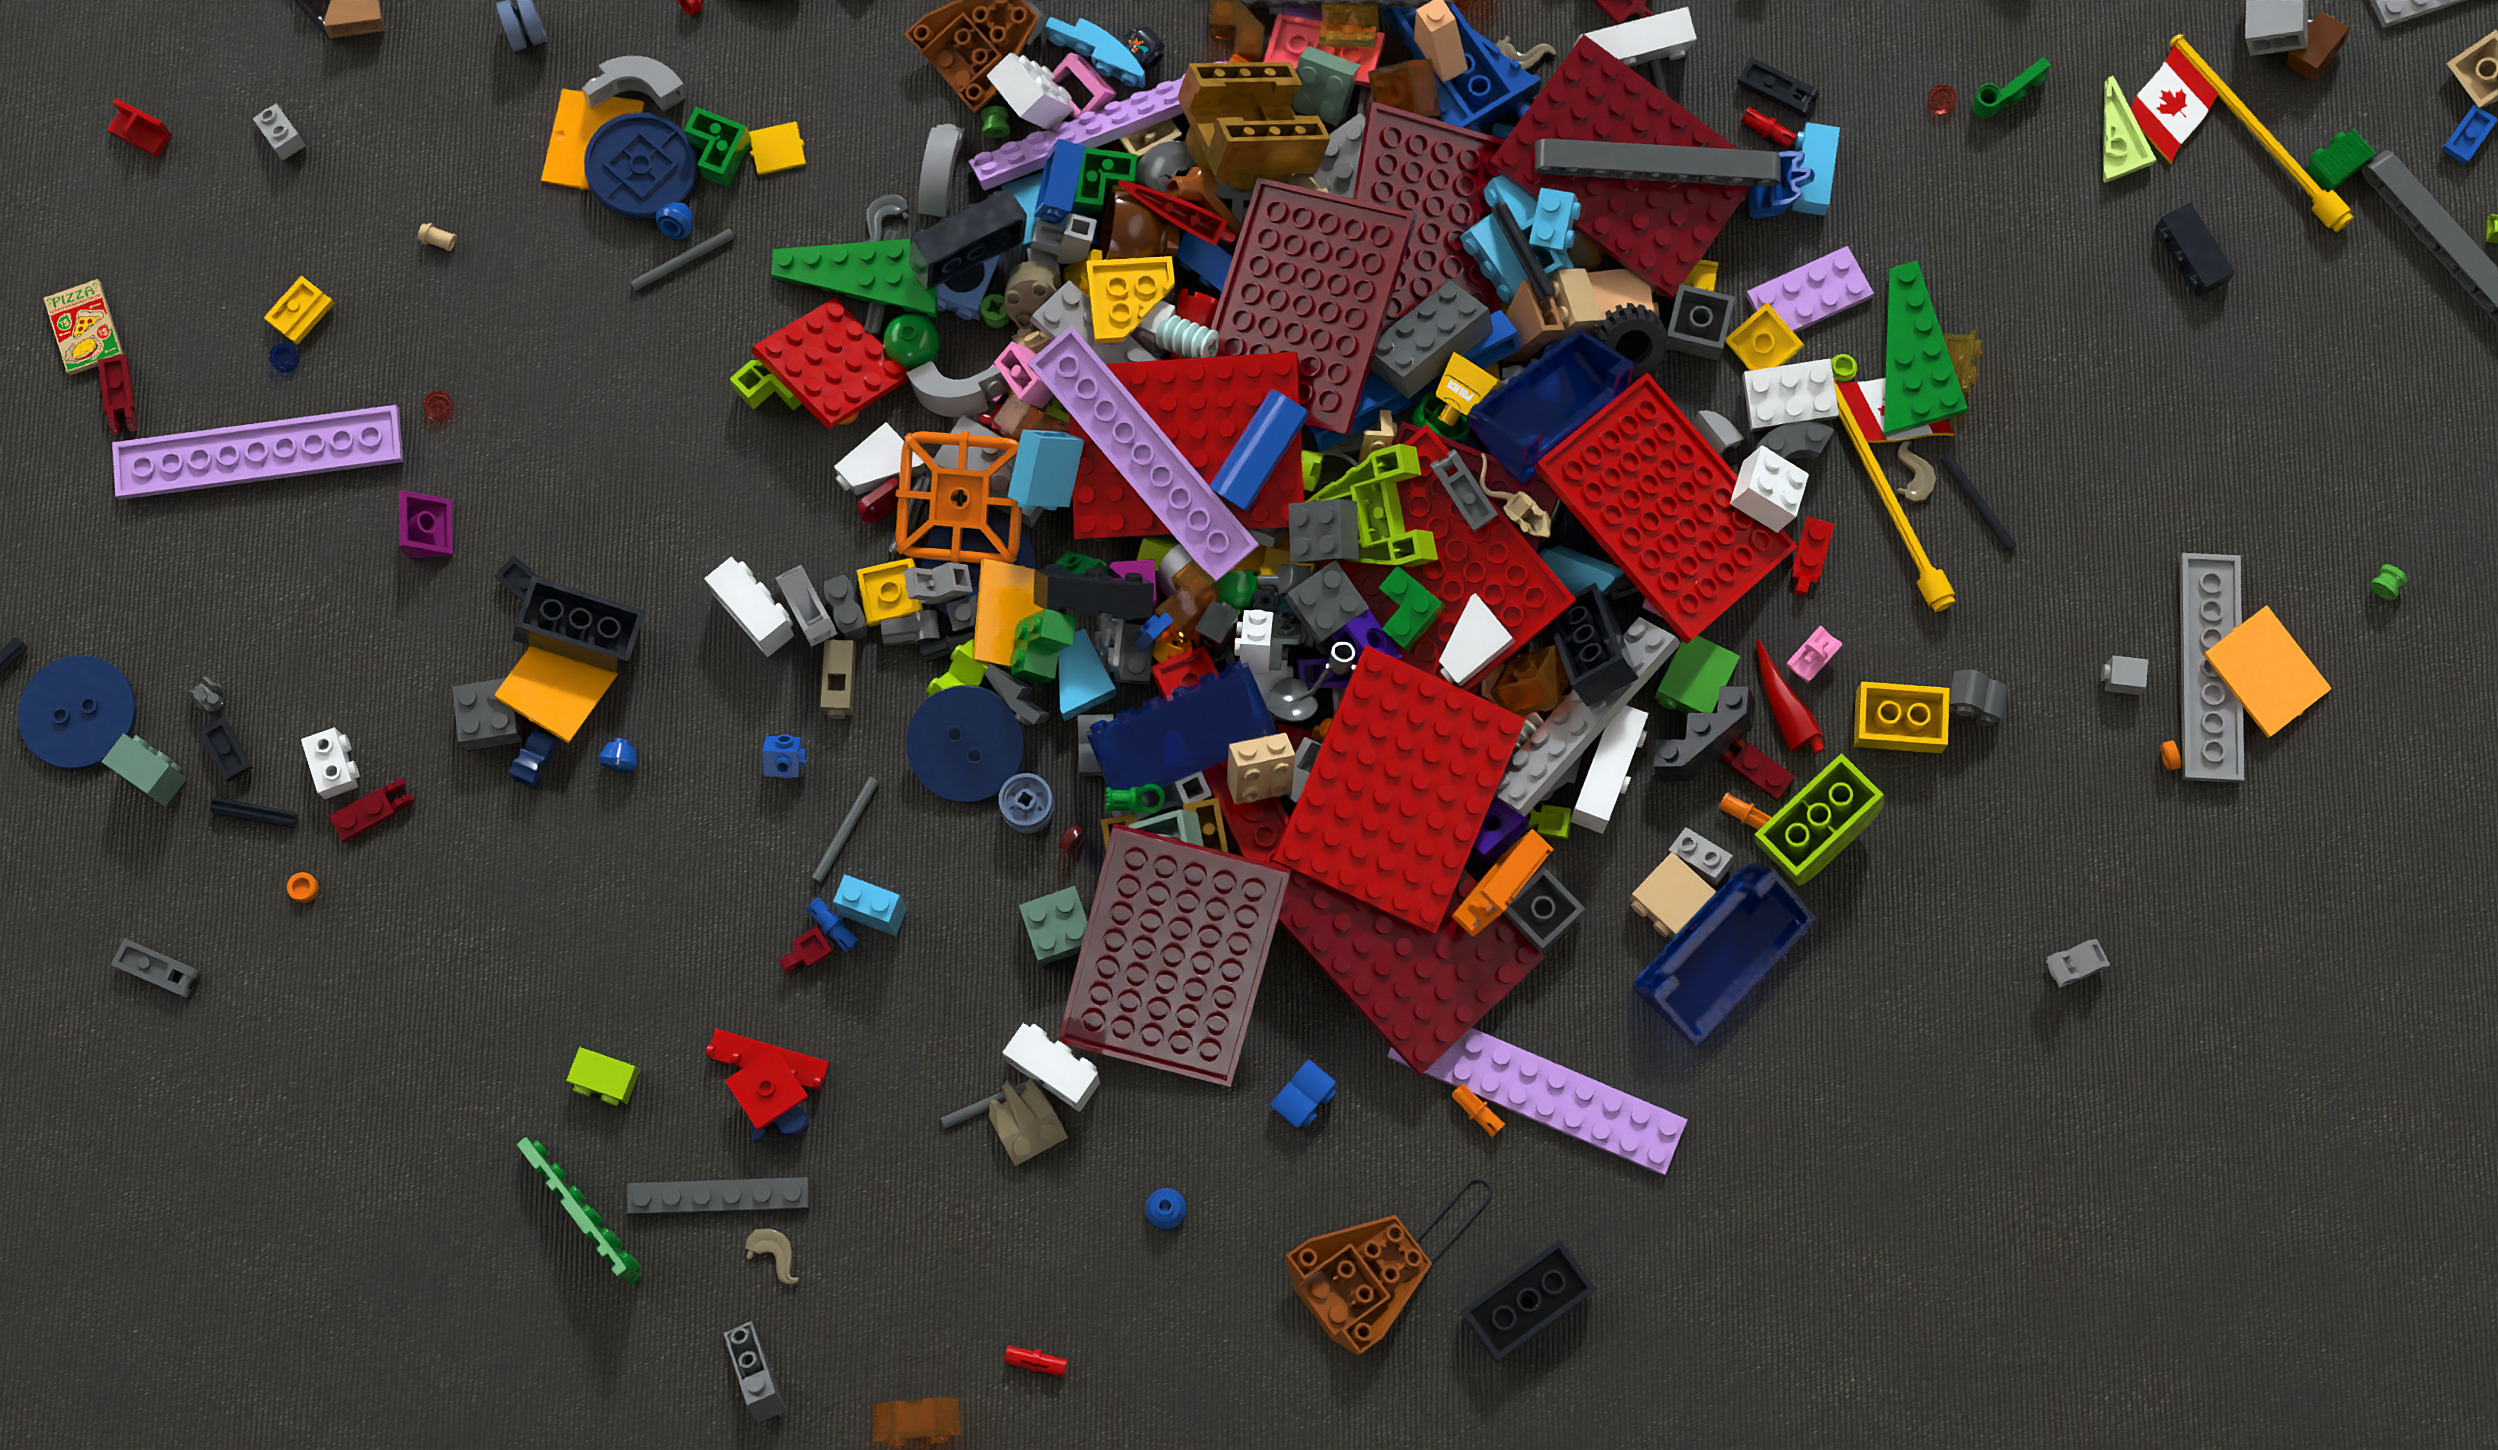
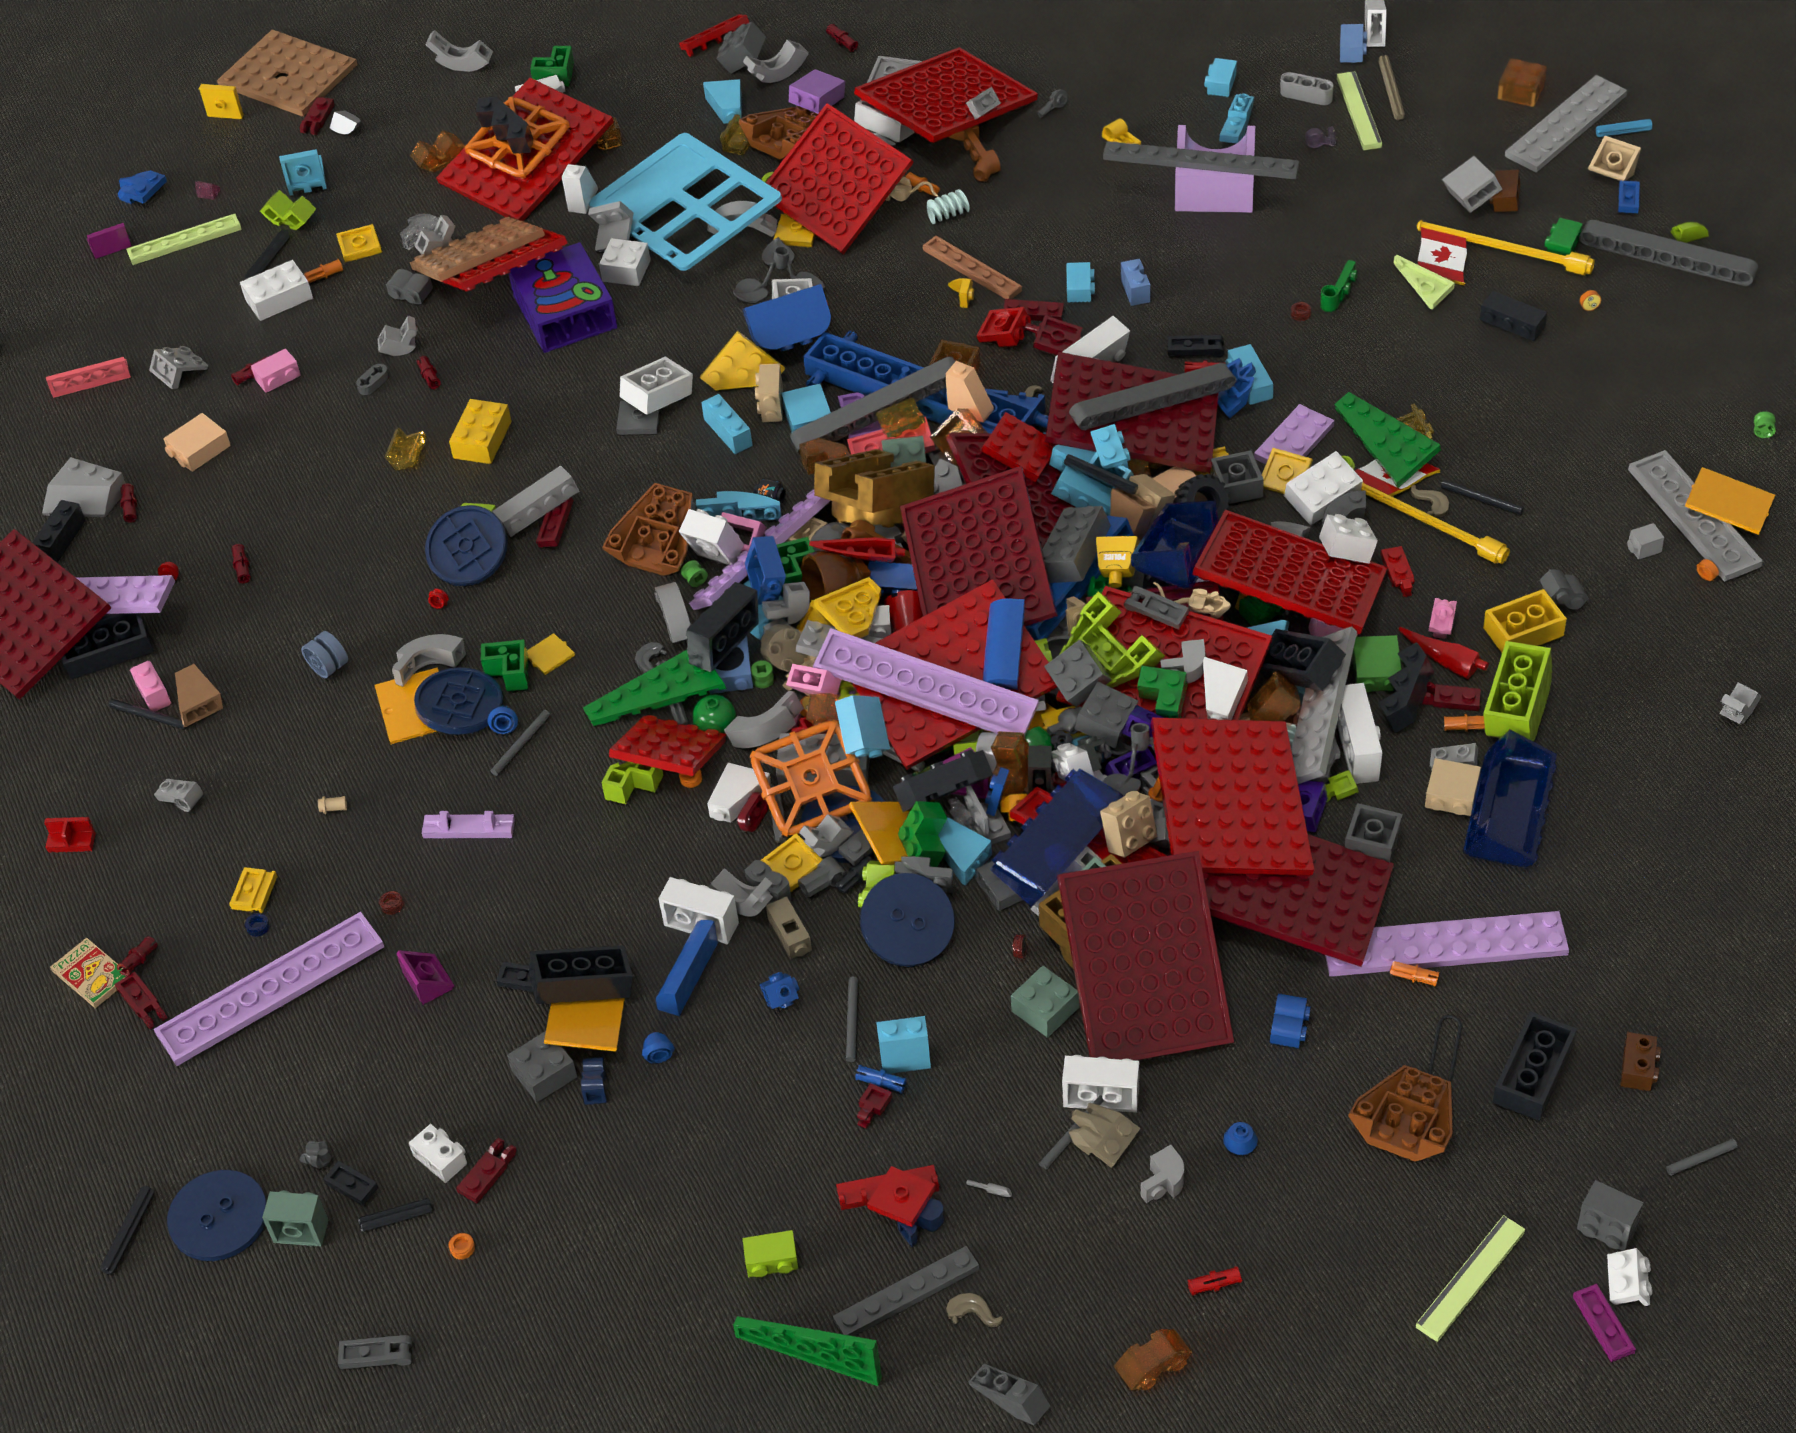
camera: 25 degrees left, 25 degrees down
(137, 334) = (137, 956): none -> dark red pin
(569, 346) = (468, 825): none -> lavender hinge
(703, 672) = (688, 968): none -> blue brick
(874, 1121) = (992, 1188): none -> light grey piece
(1041, 805) = (973, 938): sand blue wheel -> none
(1066, 1211) = (1168, 1175): none -> light grey brick
(1132, 799) = (1051, 880): green connector -> none
(1187, 338) = (904, 617): light aqua piece -> none
(1454, 153) = (1019, 445): none -> red plate
(1464, 583) = (1191, 662): none -> light grey brick
(1502, 882) = (1337, 820): orange door -> none
(1646, 1356) = (1639, 1061): none -> reddish brown brick
(2306, 276) = (1590, 300): none -> tile

